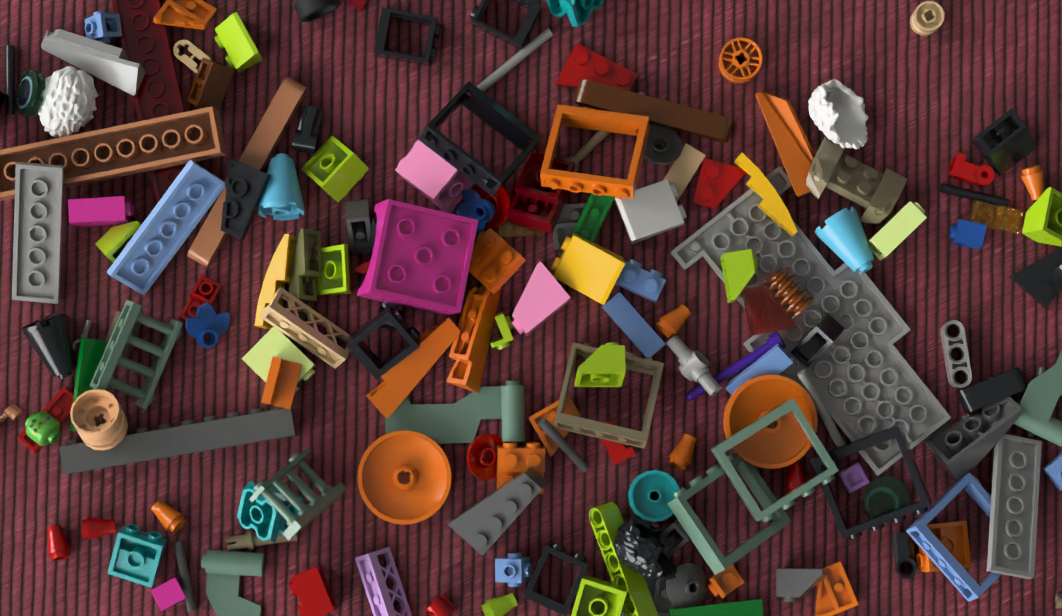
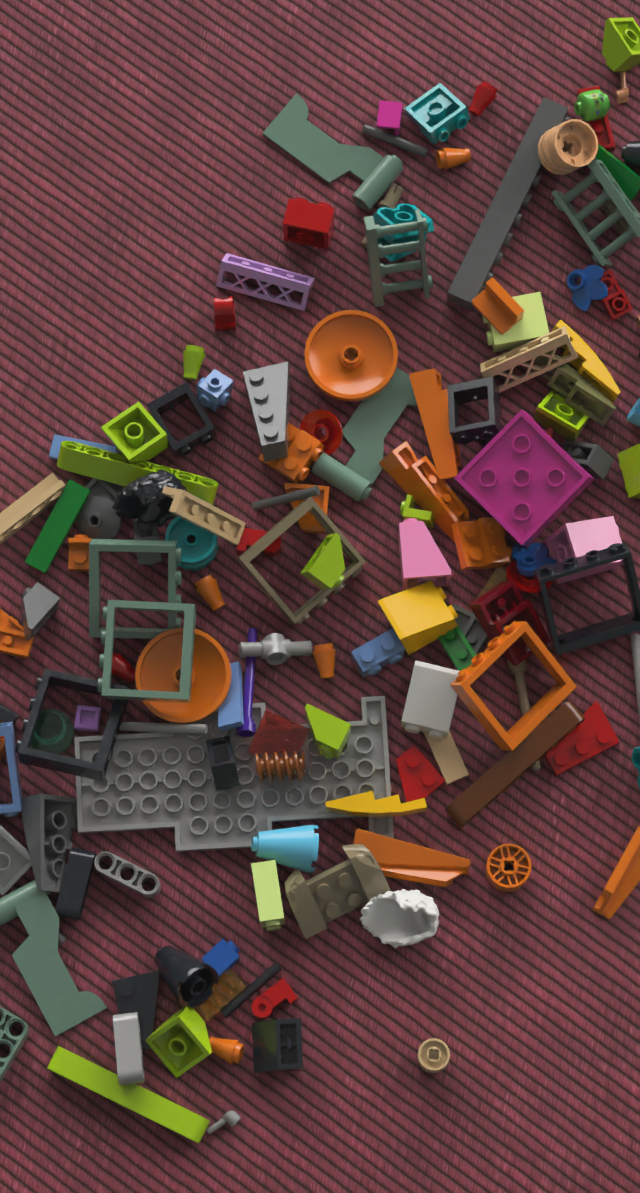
camera: 125 degrees right, 10 degrees down
(57, 543) = (491, 61): red cone -> none
(633, 325) = (344, 625): medium blue tile -> none
(633, 493) = (205, 515): none -> tan fence
(668, 145) = (481, 760): dark grey dish -> none
(1004, 250) = (186, 976): none -> black cone

